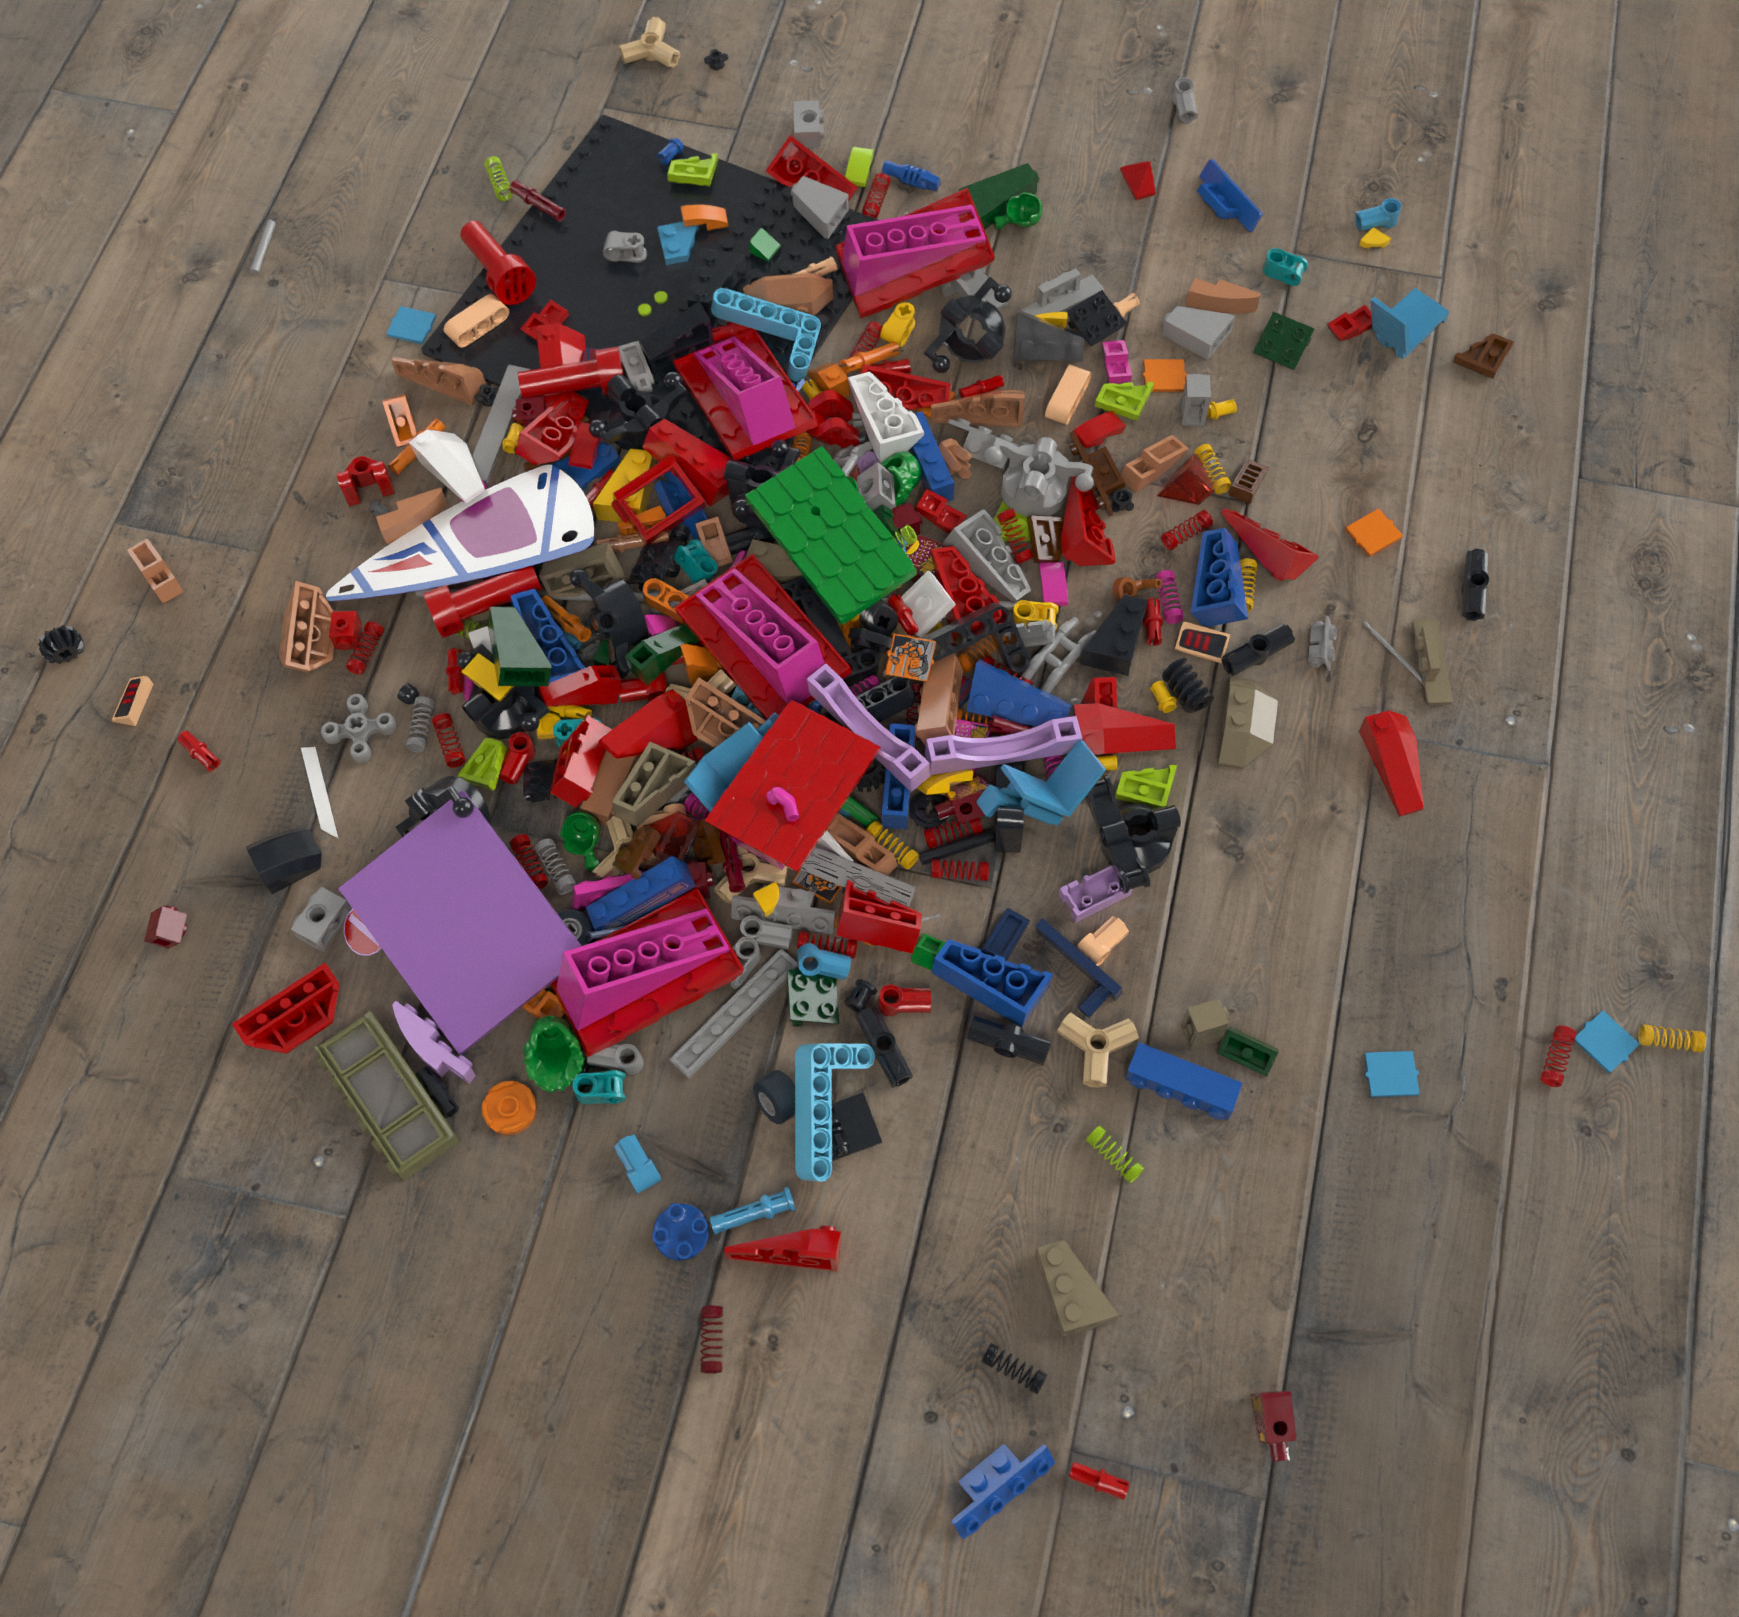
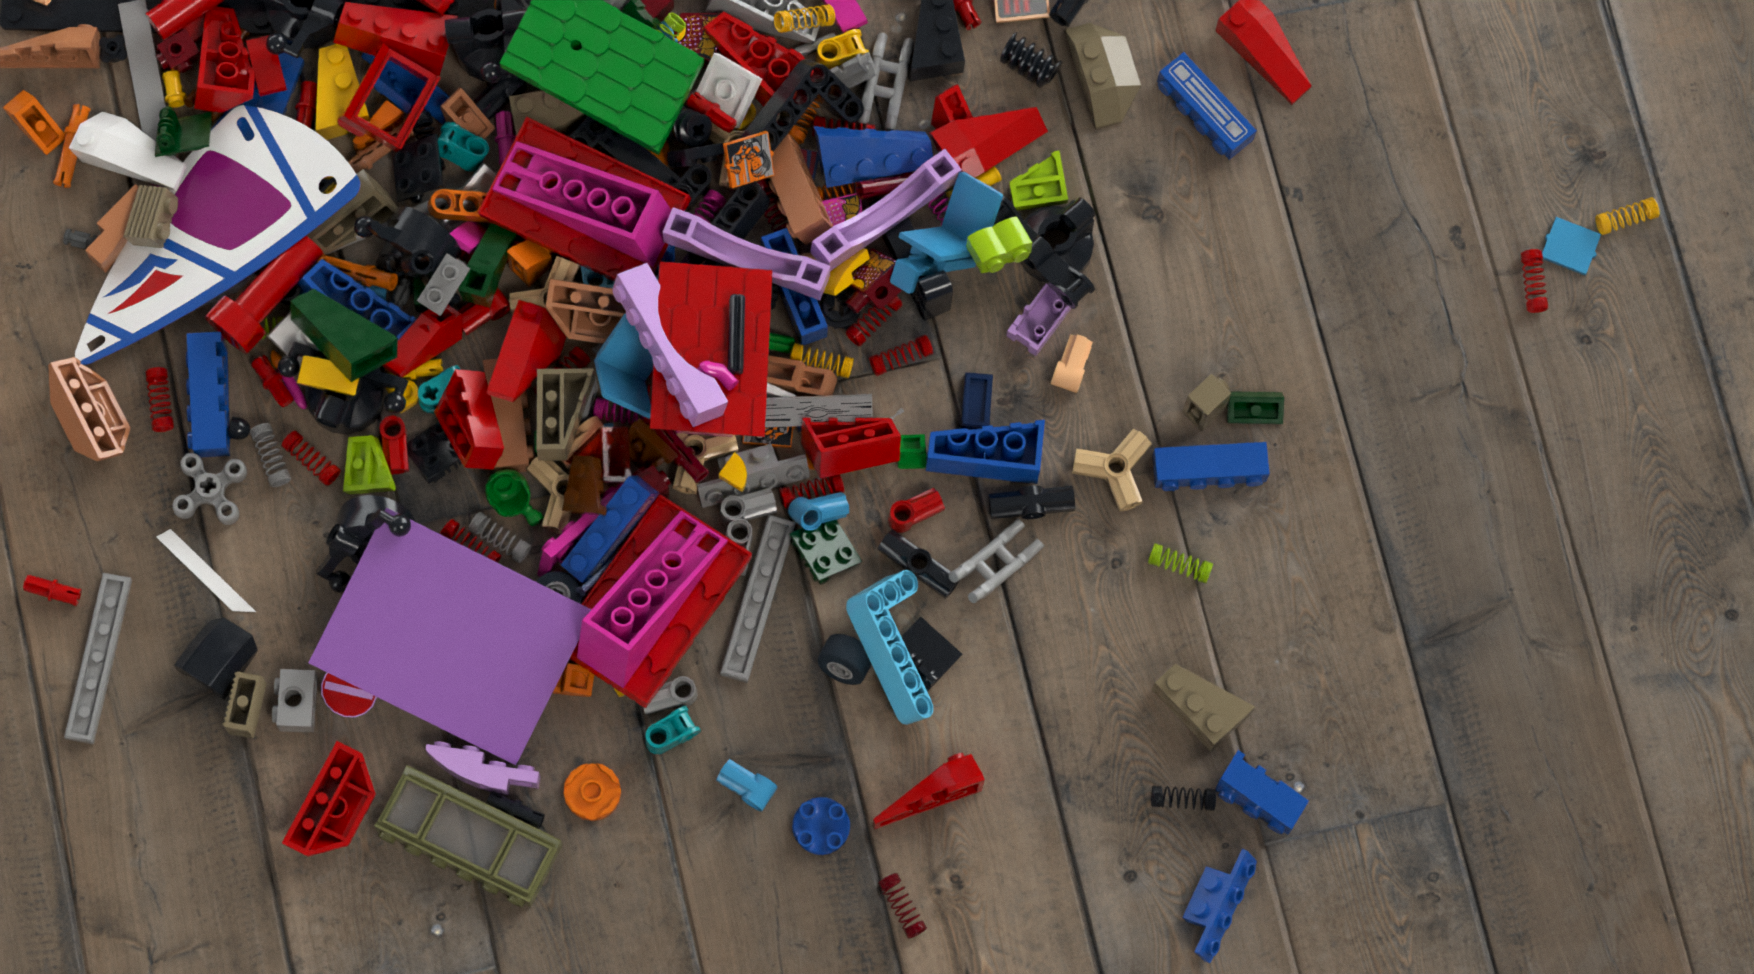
camera: 35 degrees left, 10 degrees up
(166, 927) = (143, 783): brick -> none
(198, 818) = (98, 658): none -> light grey tile
(278, 902) = (244, 704): none -> dark tan brick
(345, 629) = (127, 390): red brick -> none
(354, 477) = (27, 215): red piece -> none
(401, 656) = (208, 394): none -> blue wedge
(436, 513) = (151, 216): none -> dark tan brick
(490, 463) = (183, 133): none -> dark green hinge
(552, 1054) = (610, 721): green hair -> none
(616, 647) = (443, 284): none -> light grey hinge
(757, 806) = (696, 392): none -> lavender arch
(765, 1207) = (888, 765): dark azure pin -> none
(819, 780) = (736, 334): none -> black axle
(860, 995) = (870, 526): black bush -> none
(956, 847) = (885, 333): black piece -> none
(960, 1064) = (996, 546): none -> light grey piece
(1035, 586) = (788, 19): none -> yellow piece
(1082, 810) = (999, 245): none -> lime brick
(1086, 1401) = (1261, 795): none -> blue wedge
(1099, 1480) = (1303, 856): red axle -> none
(1105, 984) = (1097, 406): dark blue piece -> none
(1165, 700) = (1010, 81): yellow pin -> none
(1272, 1408) = (1427, 721): dark red torso -> none
(1322, 784) = (1206, 106): none -> blue brick
(1391, 1074) = (1393, 368): dark azure piece -> none

